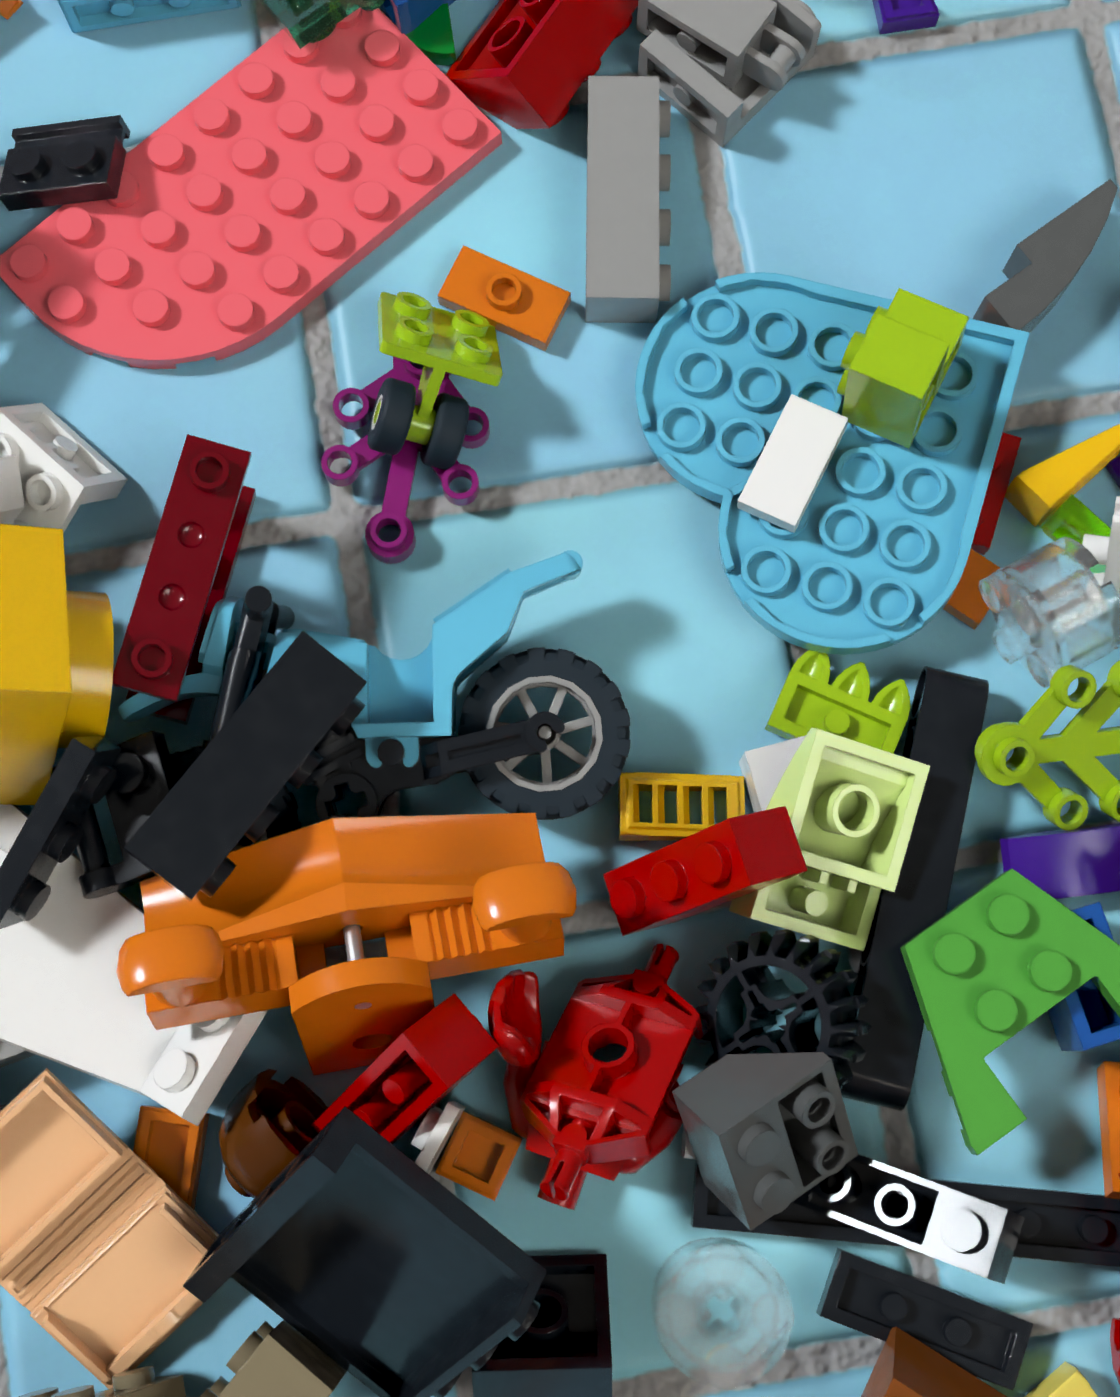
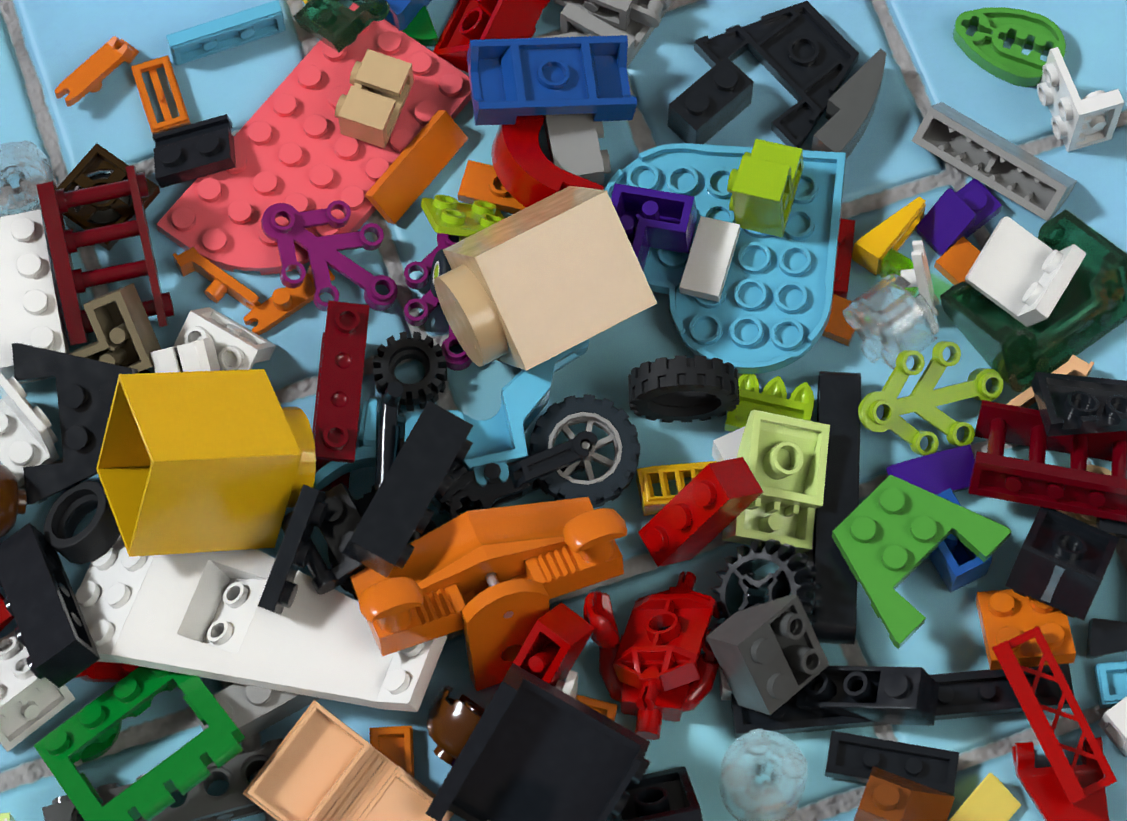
camera: 10 degrees left, 10 degrees down
(26, 330) = (221, 281): none -> orange piece
(45, 113) = (169, 123): none -> orange tile
(162, 412) = (282, 304): none -> orange piece
(221, 348) = (325, 252): none -> magenta plant
(304, 520) = (417, 349): none -> black tyre
(340, 128) = (375, 98): none -> tan piece
(385, 242) = (416, 166): none -> orange tile
(529, 459) = (542, 280): none -> tan container
(549, 287) = (525, 168): none -> red arch
(603, 139) = (550, 78): none -> blue piece
(698, 386) = (655, 219): none -> dark purple brick
(714, 664) = (683, 389): none -> black tyre
(838, 219) = (710, 103): none -> black brick
(983, 166) = (799, 52): none -> black wing

